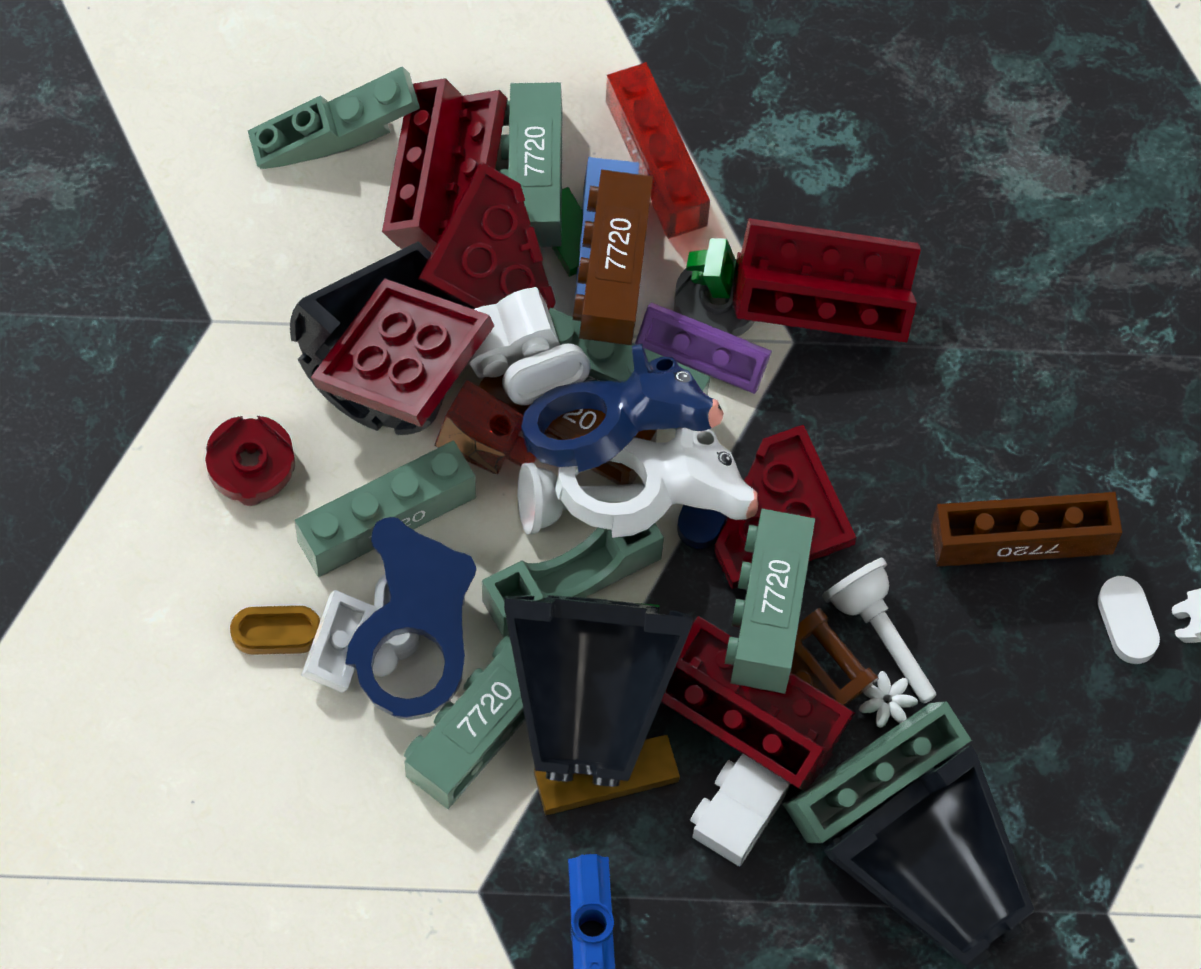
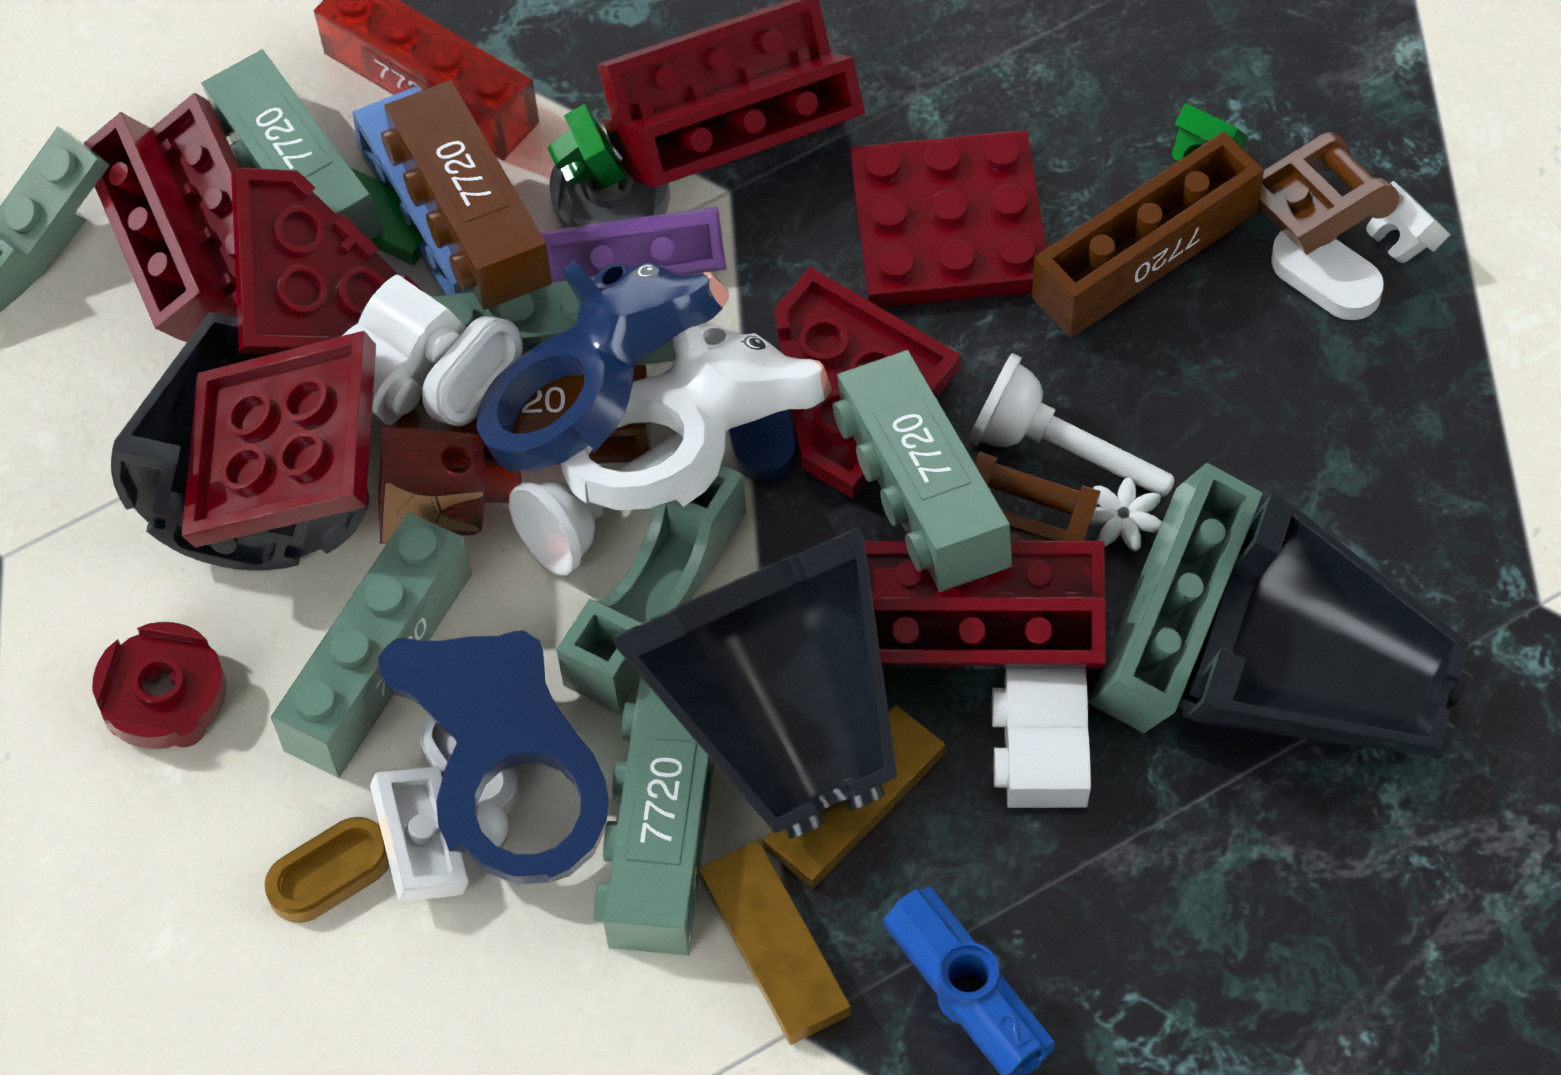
camera: 25 degrees left, 5 degrees down
(500, 833) = (774, 942): none -> pearl gold tile
(914, 440) = (947, 218): none -> dark red plate
(1114, 478) = (1198, 128): none -> green tile
(1140, 567) = (1309, 206): none -> reddish brown plate

